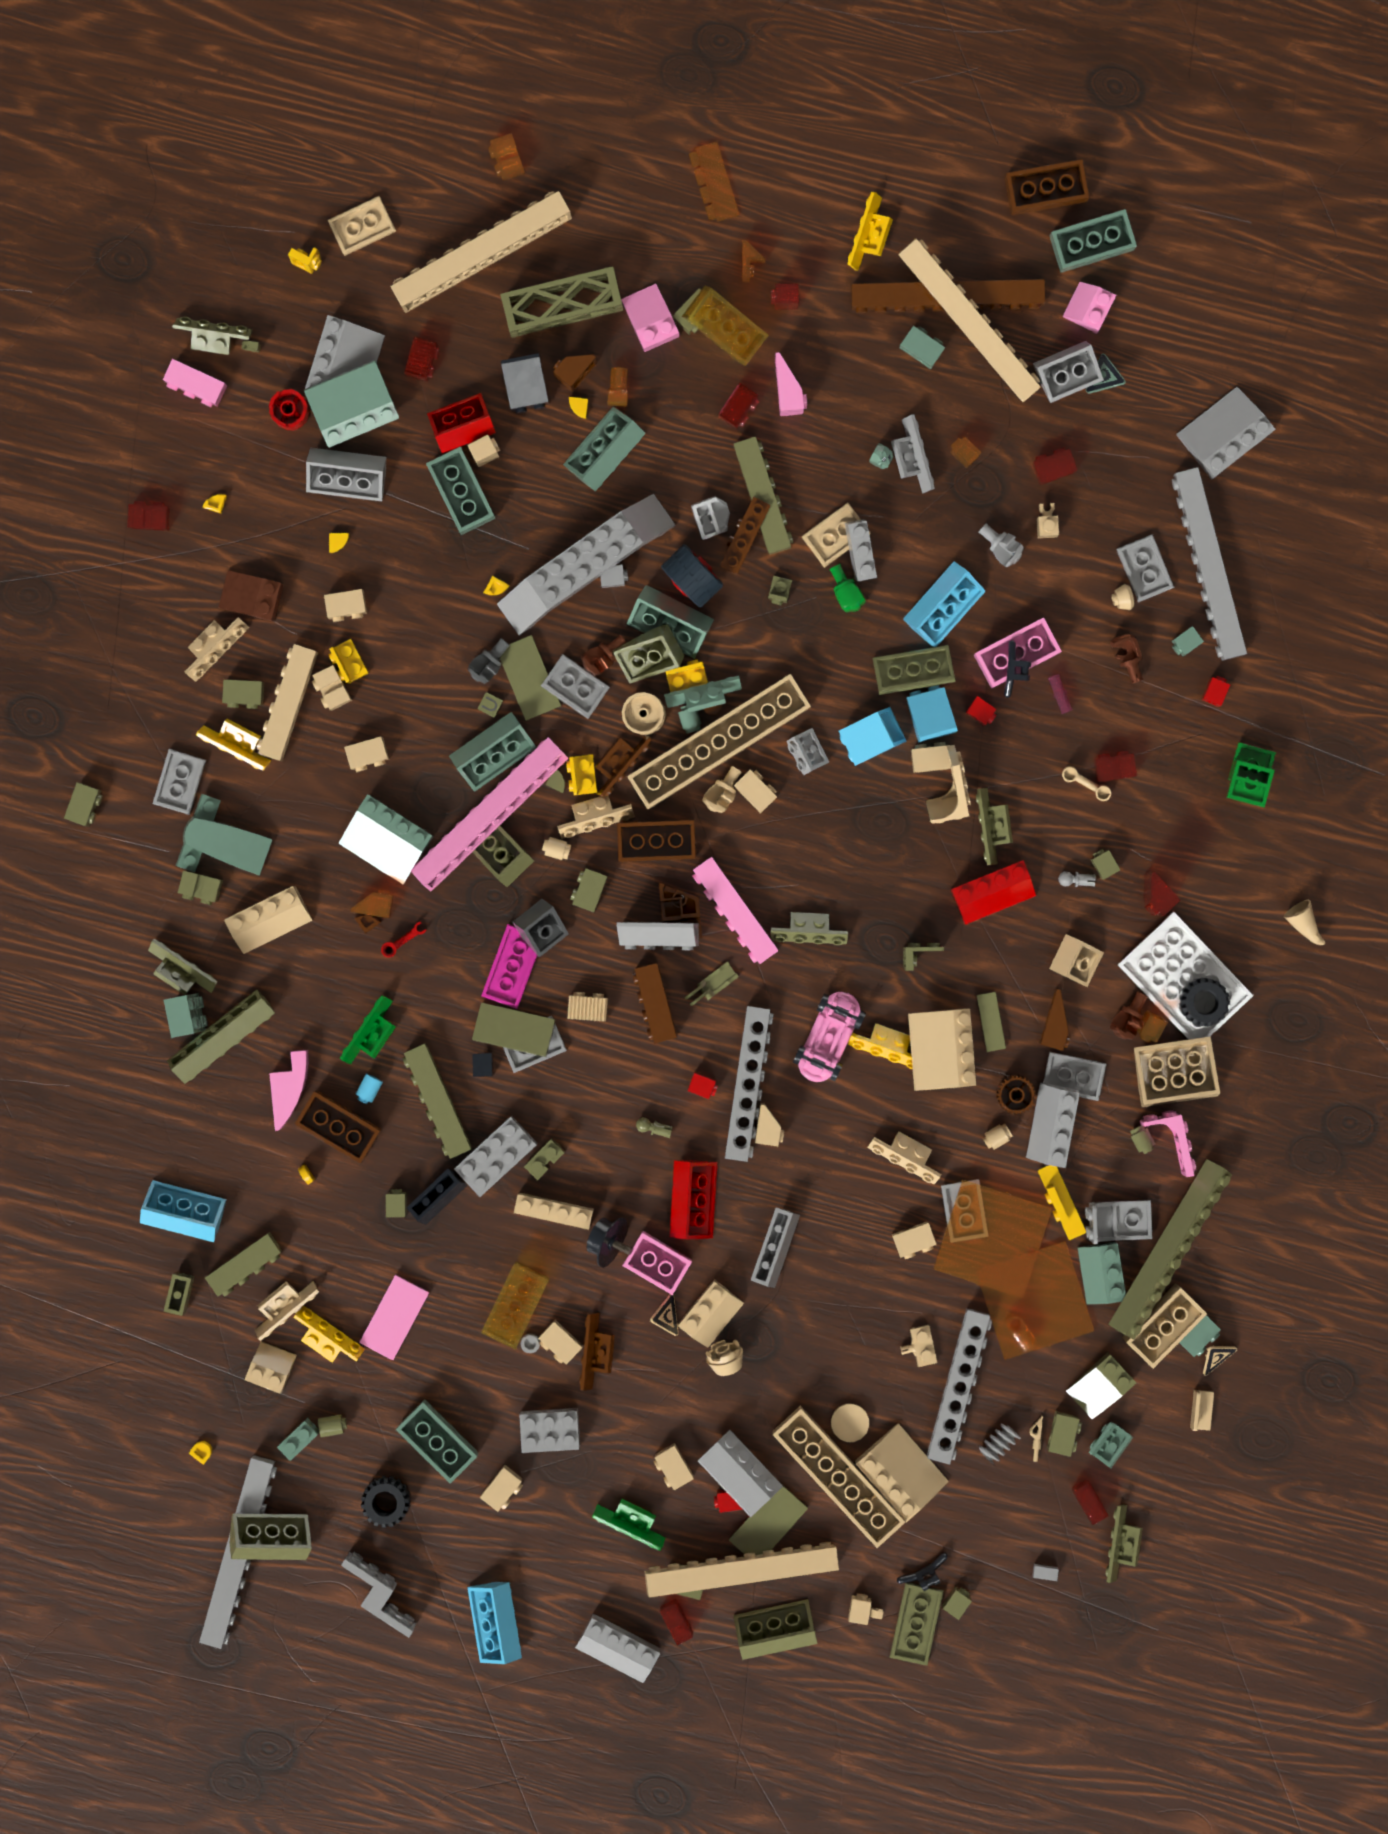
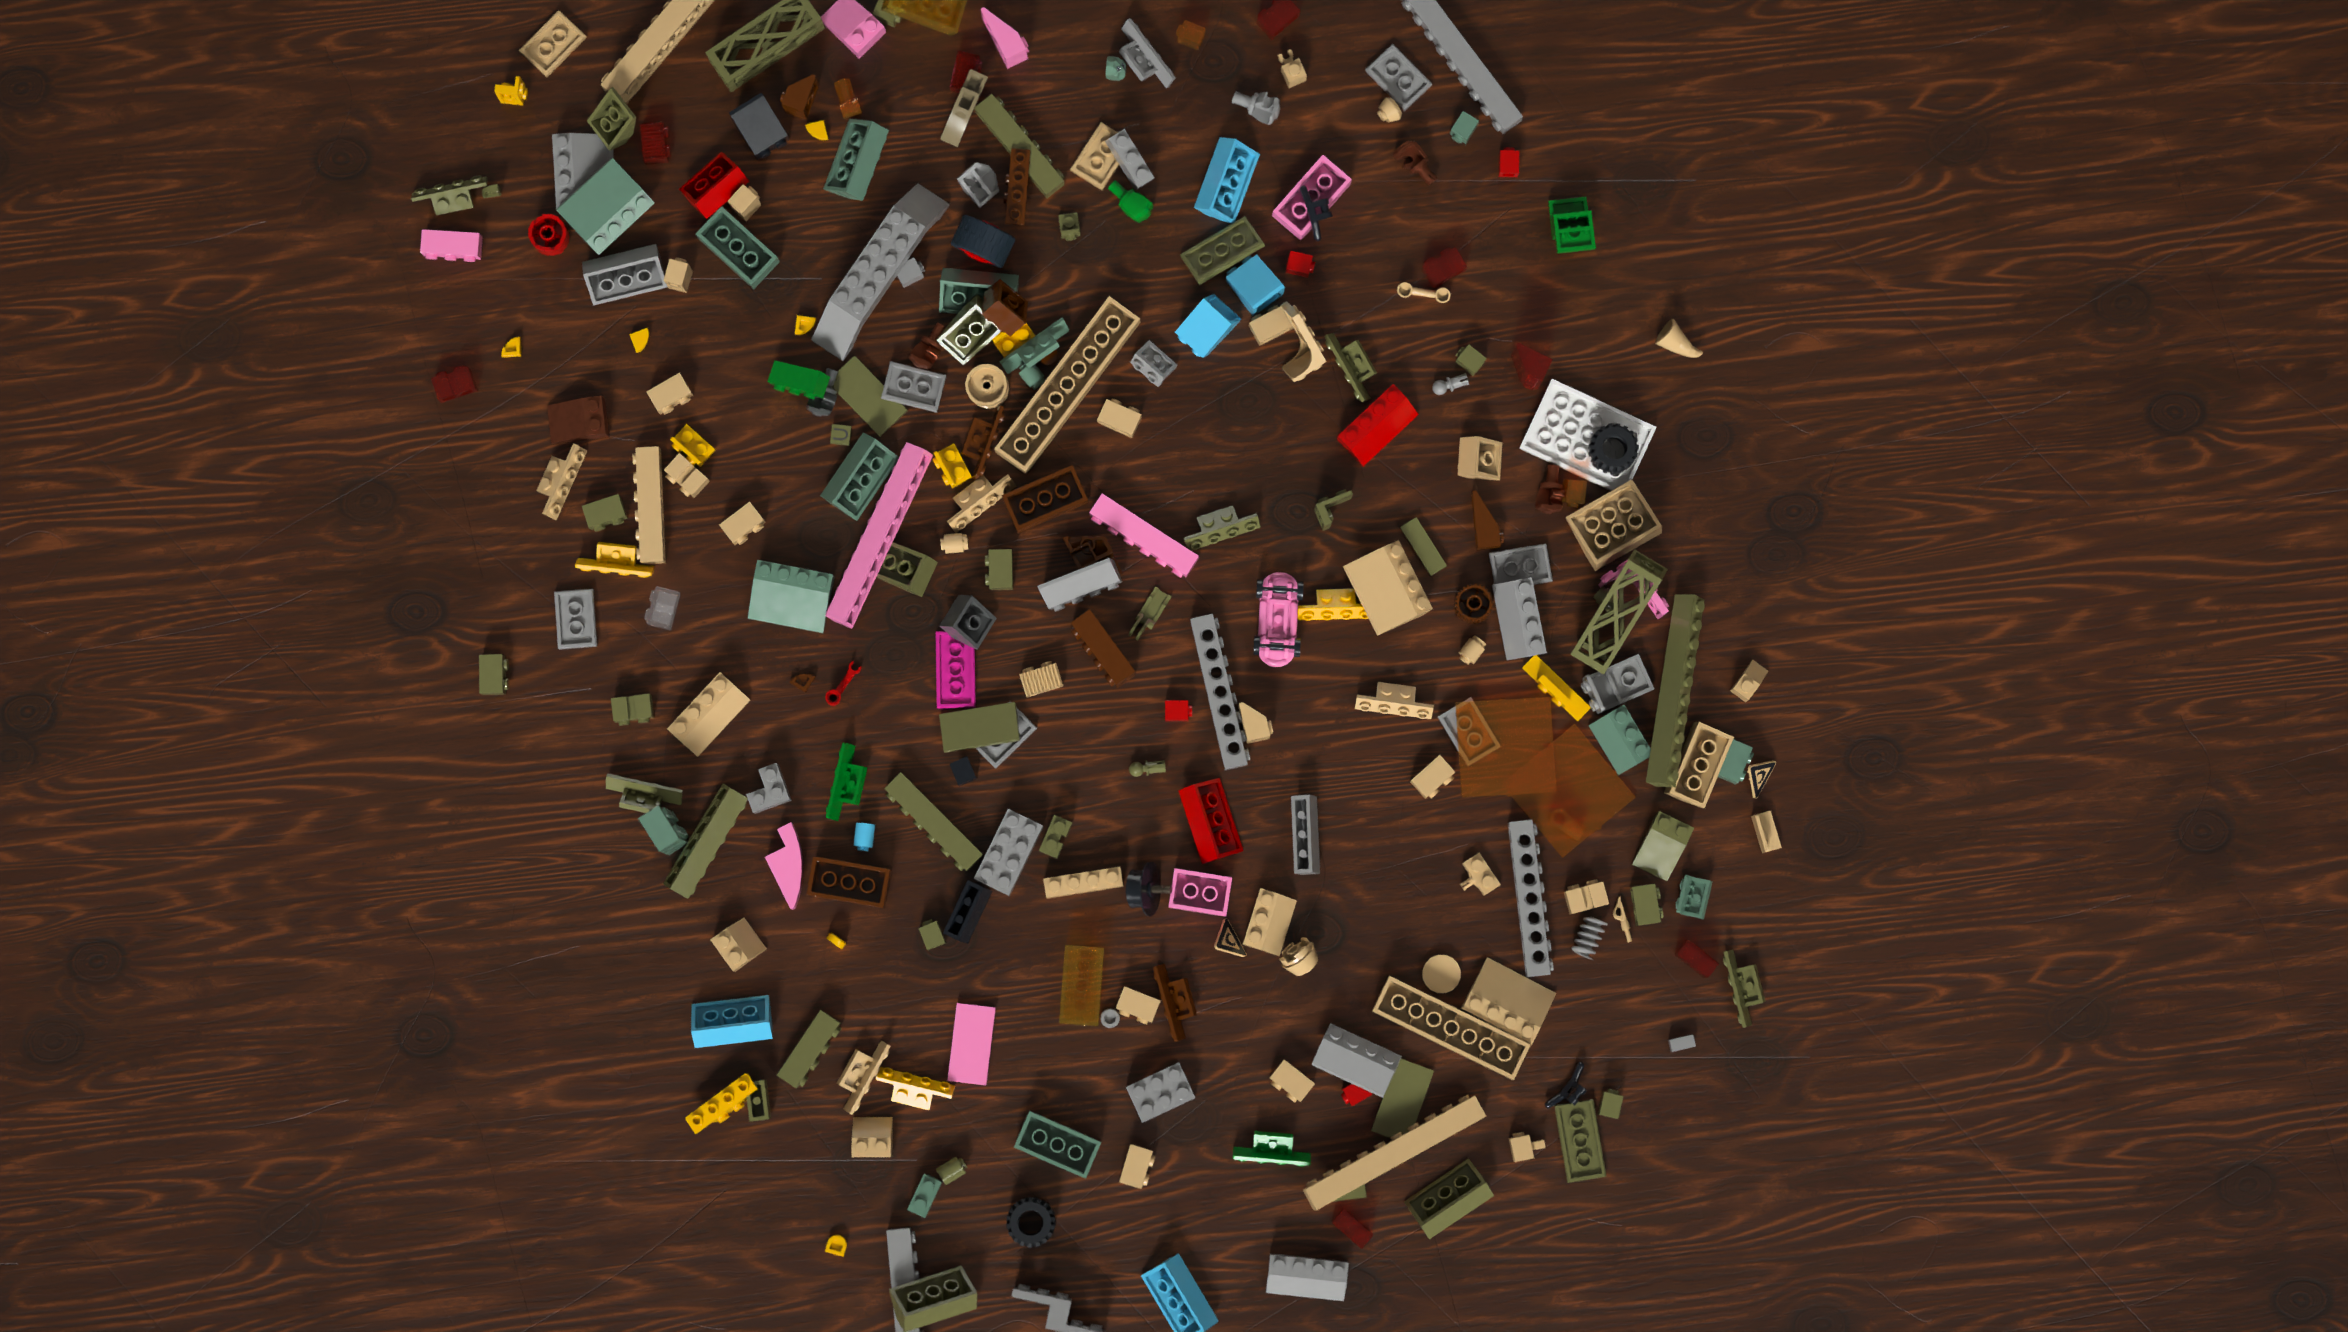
camera: 20 degrees left, 5 degrees down
(144, 1284) = (722, 1104): none -> yellow bracket
(215, 1143) = (738, 944): none -> tan slope
(220, 841) = (635, 658): sand green slope -> none
(263, 803) = (662, 608): none -> clear brick
(301, 1016) = (773, 794): none -> light grey brick
(375, 904) = (804, 661): clear orange slope -> none
(388, 325) = (613, 120): none -> olive slope
(395, 495) = (678, 275): none -> tan brick
(469, 640) = (798, 380): none -> green brick
(556, 781) = (930, 482): olive tile -> none
(688, 648) = (1004, 307): none -> reddish brown brick
(722, 793) = (1089, 431): tan piece -> none
(724, 439) = (963, 108): none -> dark tan slope
(1011, 1405) = (1586, 897): none -> tan brick
(1060, 694) = (1366, 220): clear pink pin -> none
(1189, 1136) = (1646, 569): none -> olive piece
(1243, 1265) = (1749, 681): none -> tan slope

